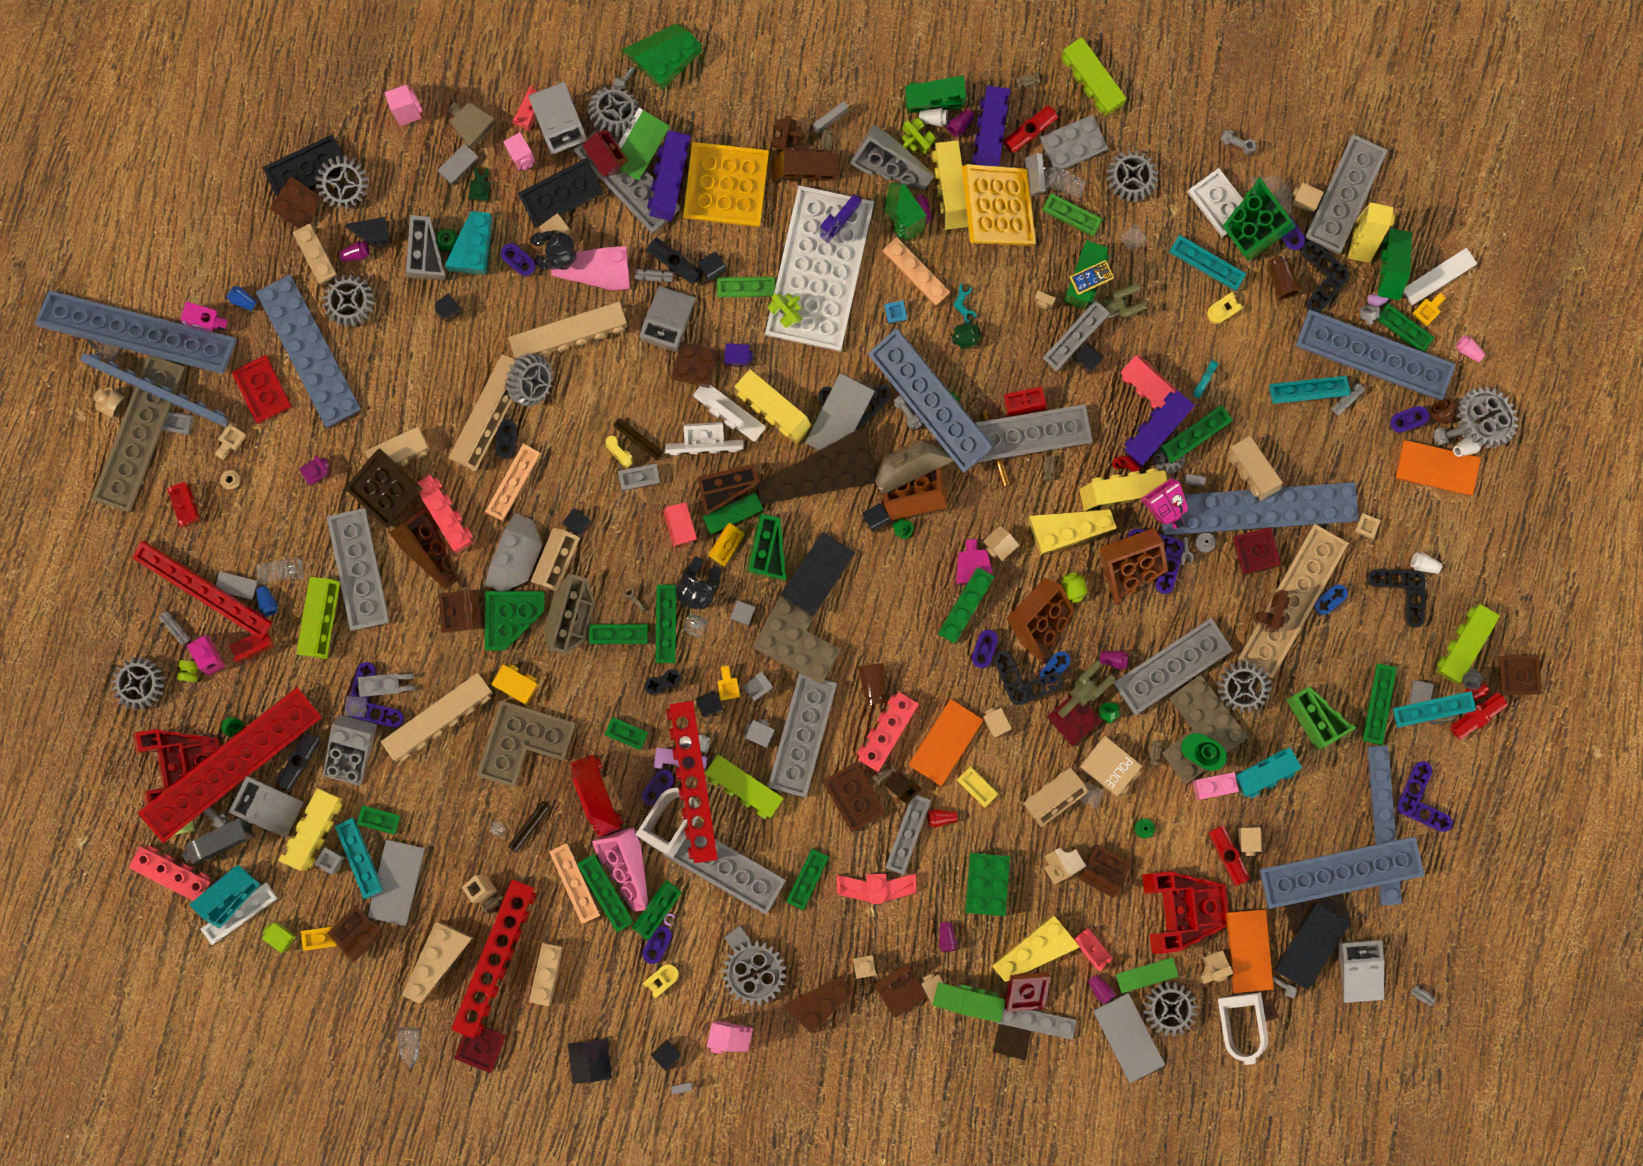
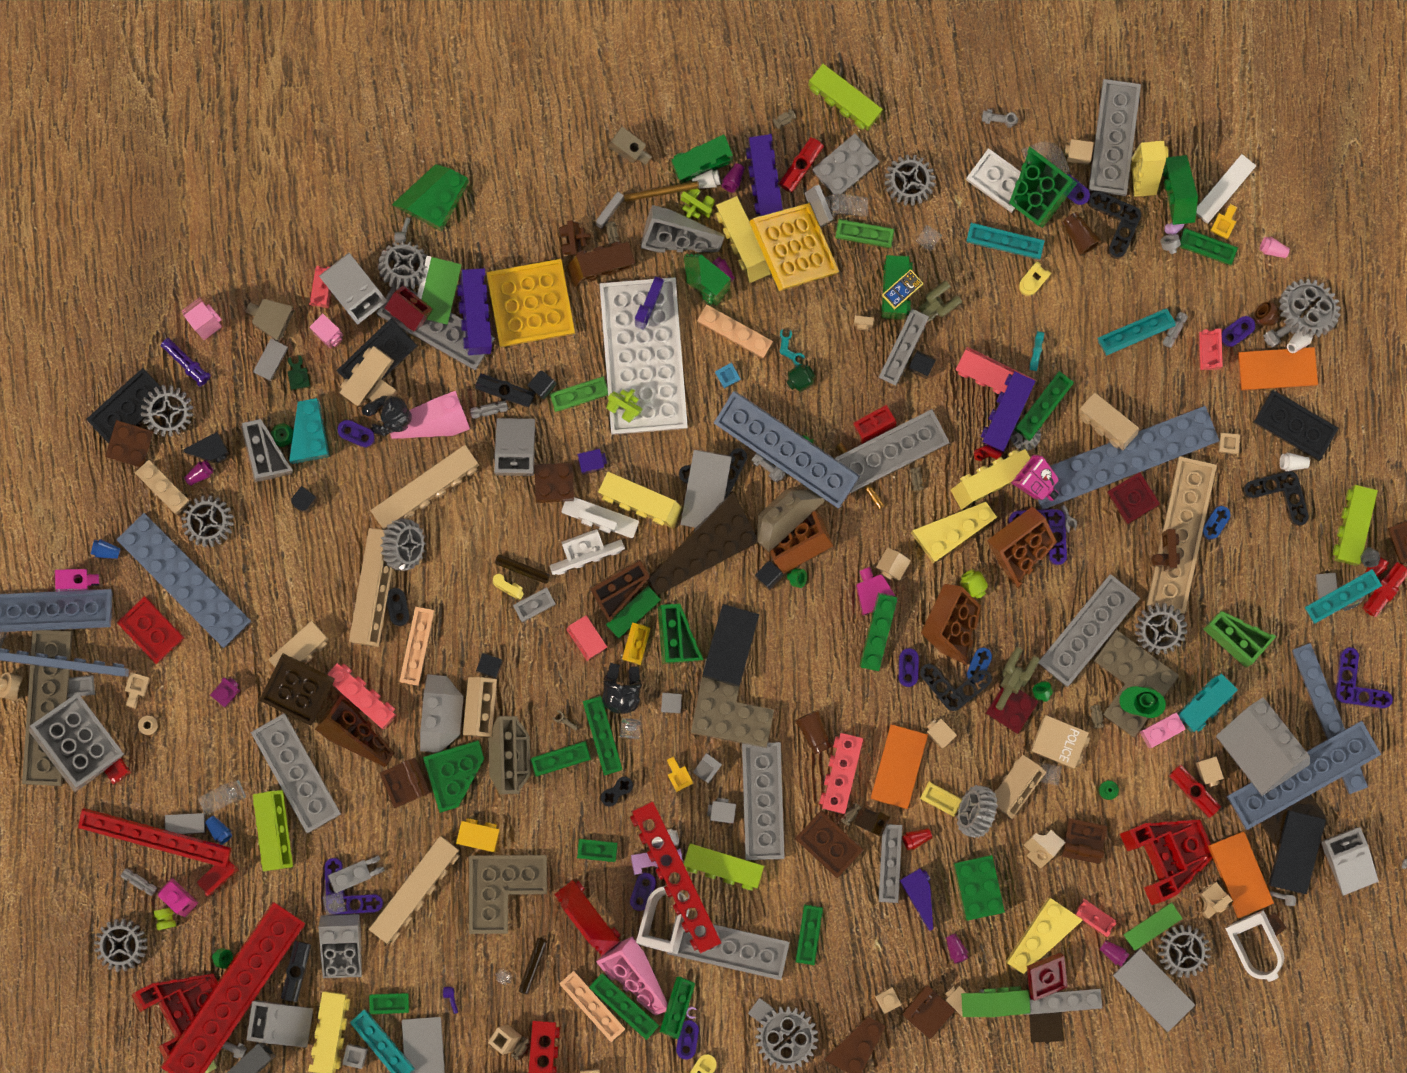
camera: 20 degrees left, 0 degrees up
(154, 474) = (75, 742): none -> light grey slope
(379, 149) = (191, 368): none -> dark purple pin
(440, 827) = (448, 992): none -> dark purple hand
(544, 206) = (366, 375): none -> tan brick
(709, 704) = (666, 798): black piece -> none
(865, 54) = (621, 145): none -> dark tan torso
(876, 888) = (876, 922): coral plate -> none
(886, 114) = (661, 191): none -> pearl gold bar
(927, 871) = (919, 892): none -> dark purple slope
(1008, 809) = (977, 811): none -> light grey gear
(1115, 659) = (1032, 640): magenta cone -> none
(1194, 480) = (1055, 449): light grey tile -> none
(1202, 546) = (1080, 508): light grey tile -> none
(1310, 832) = (1263, 747): none -> light grey slope
(1375, 355) = (1187, 281): sand blue plate -> none
(1377, 429) = (1210, 349): none -> coral hinge
(1379, 704) = (1290, 607): green plate -> none
(1438, 528) = (1295, 425): none -> black tile

